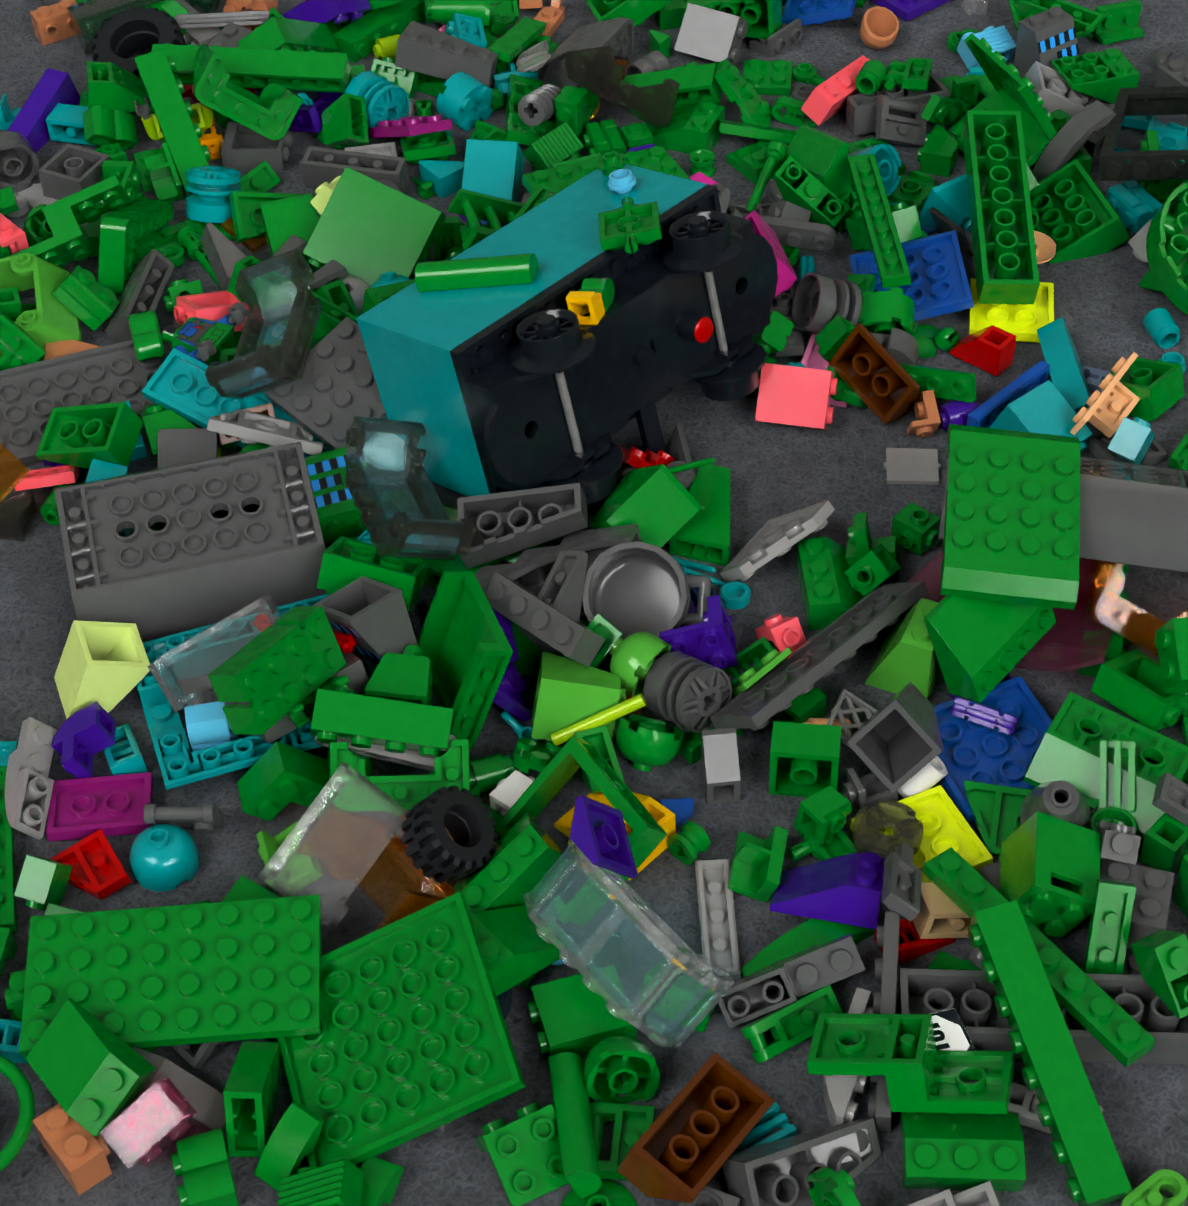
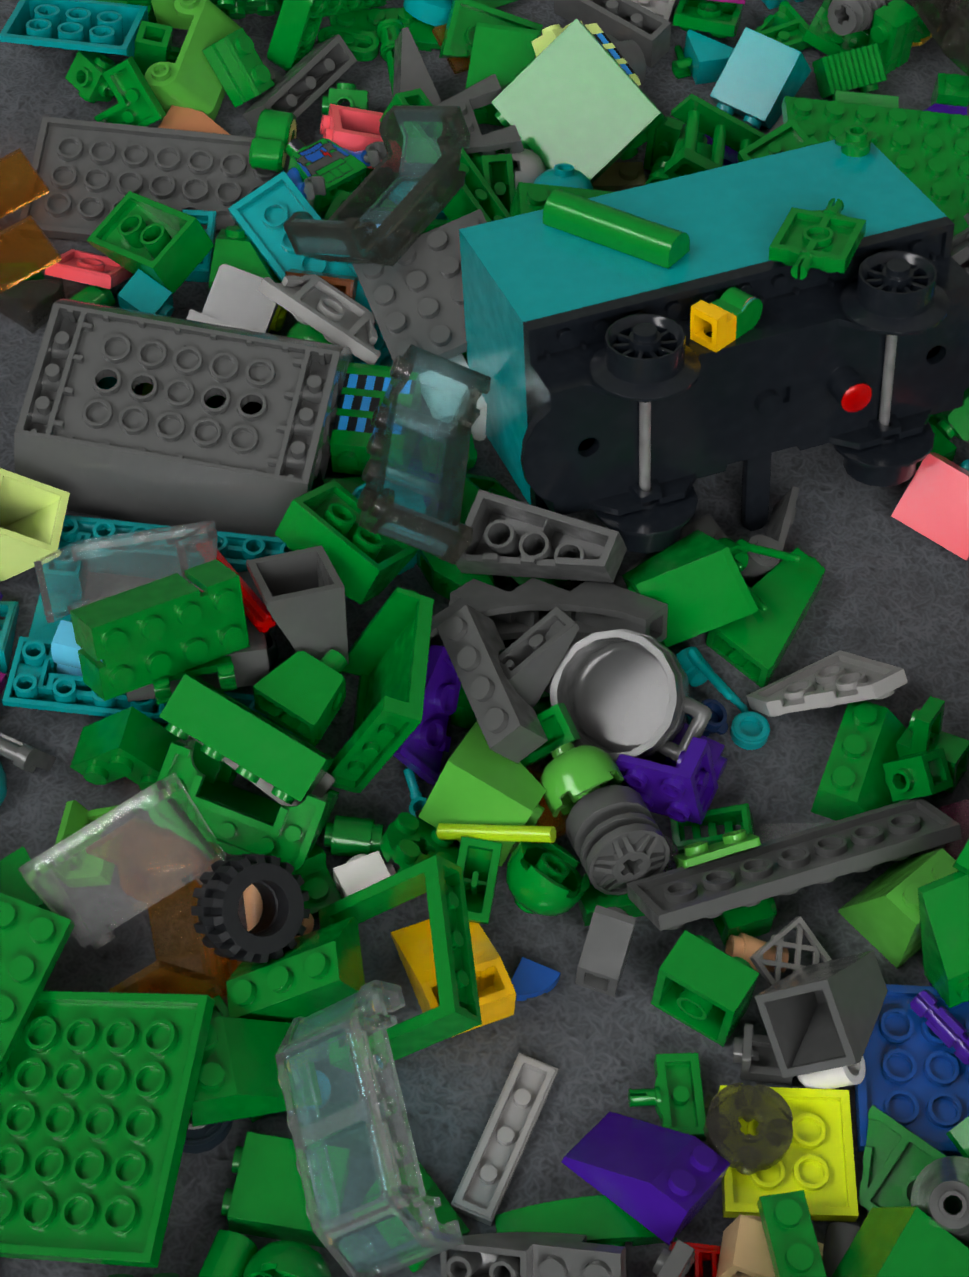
camera: 20 degrees right, 10 degrees up
(602, 836) = (394, 1005): dark purple slope -> none
(603, 138) = (914, 81): green brick -> none
(621, 181) = (850, 170): medium azure plate -> none
(640, 459) = (737, 522): red slope -> none
(688, 842) = (522, 1028): green wheel -> none
(757, 864) = (584, 1091): green panel -> none
(782, 631) = (774, 807): coral bracket -> none
(822, 814) = (686, 1070): green brick -> none
(902, 883) = (719, 1210): dark grey hinge -> none

